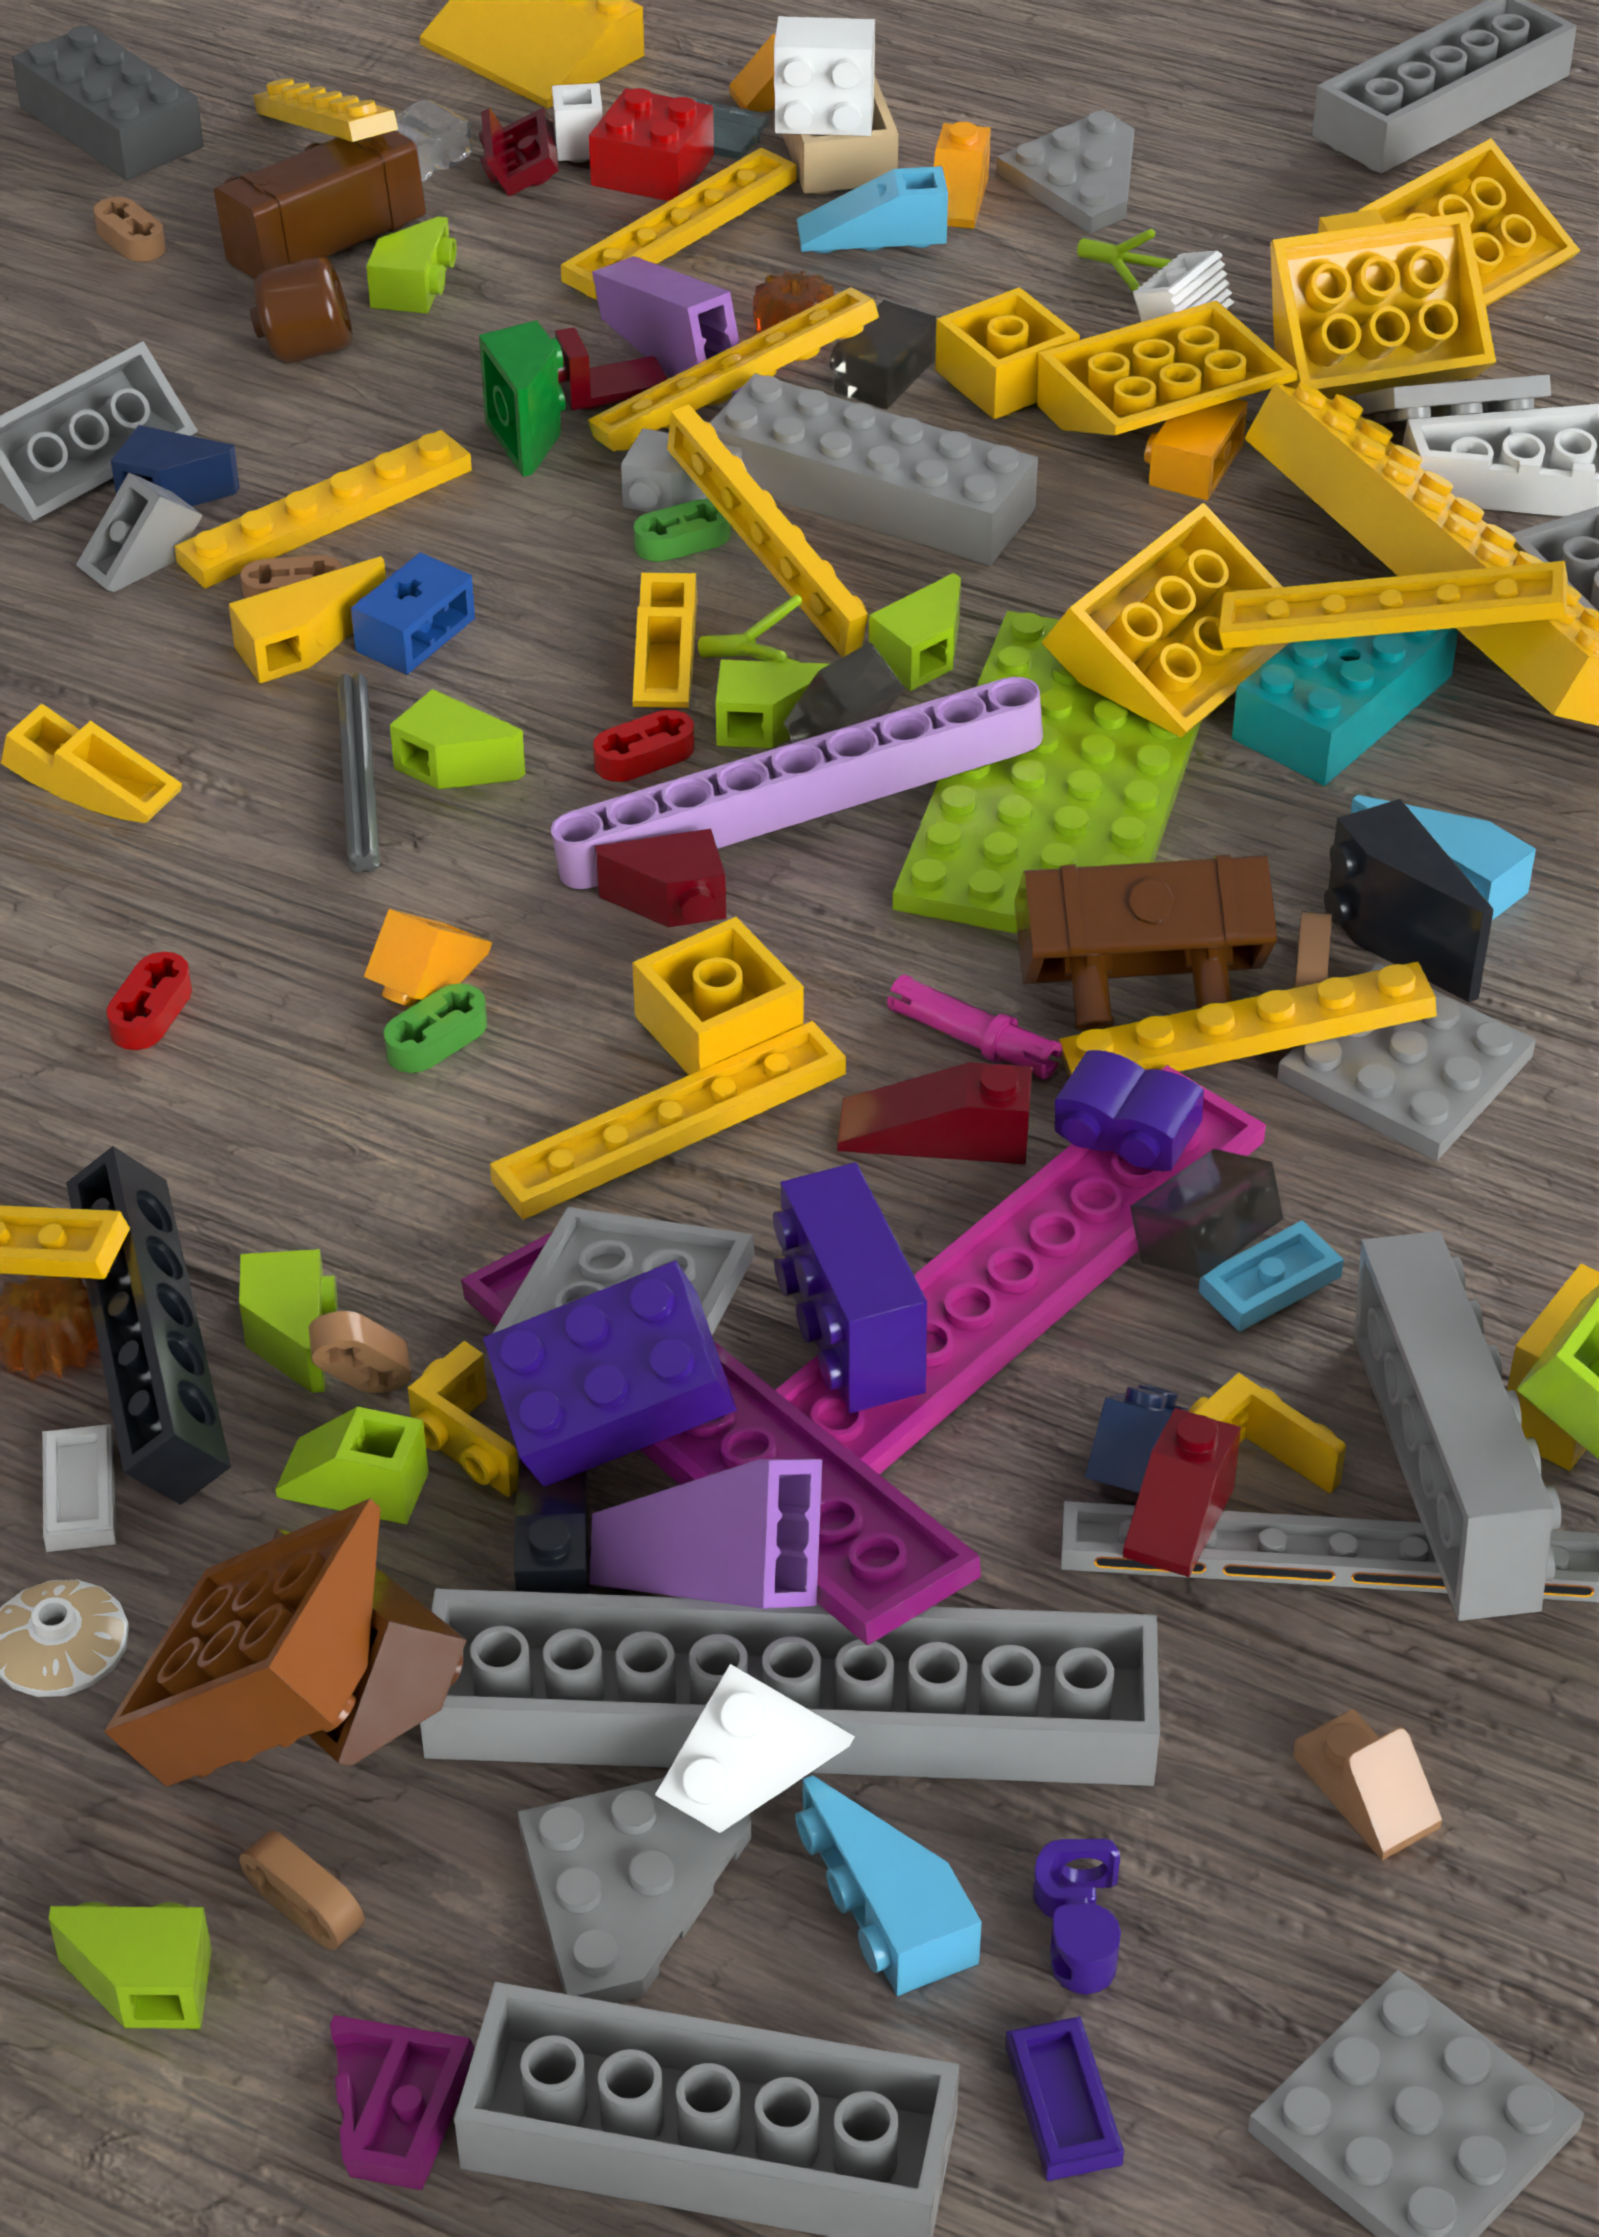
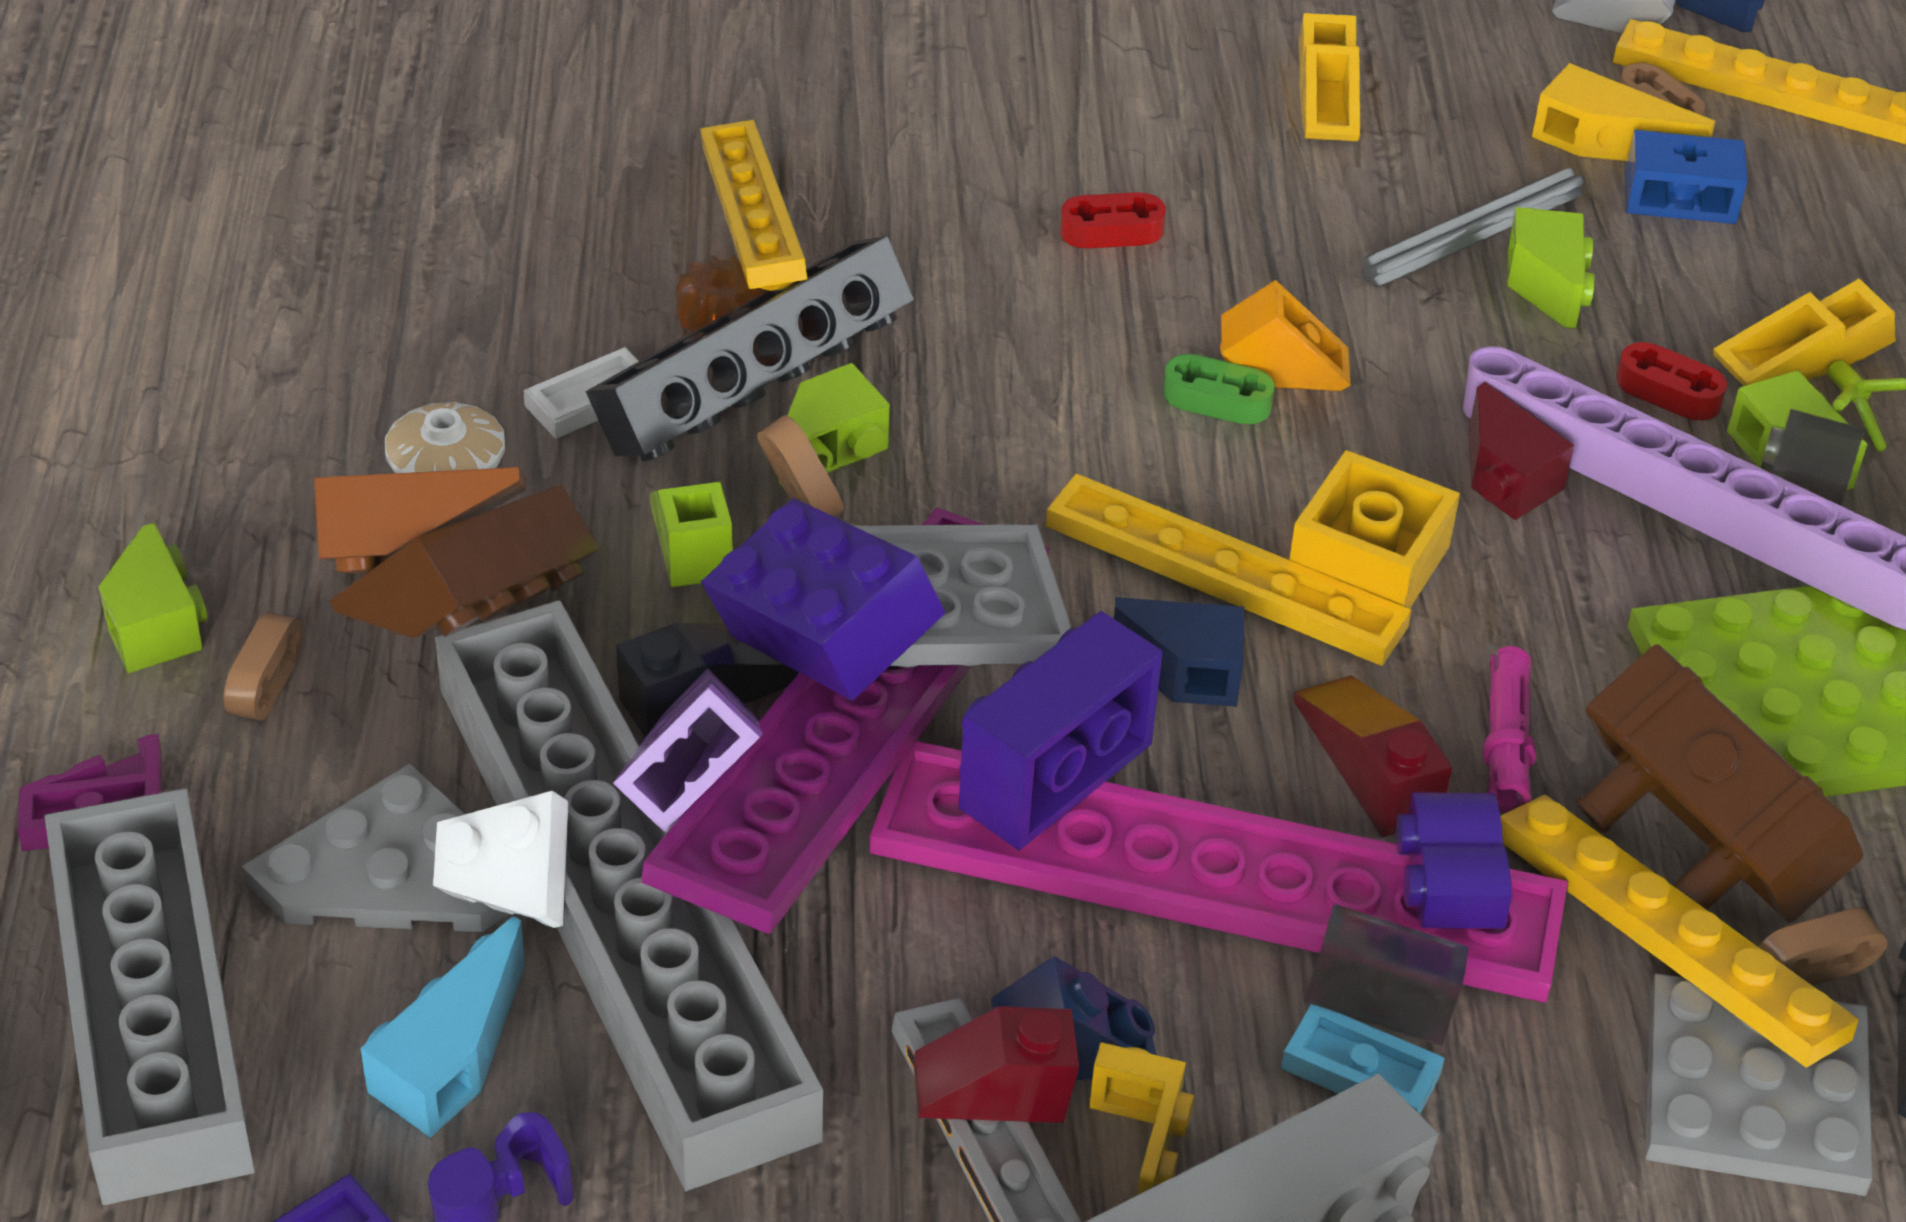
camera: 60 degrees right, 0 degrees up
(745, 1180) = (1198, 646): none -> dark blue slope

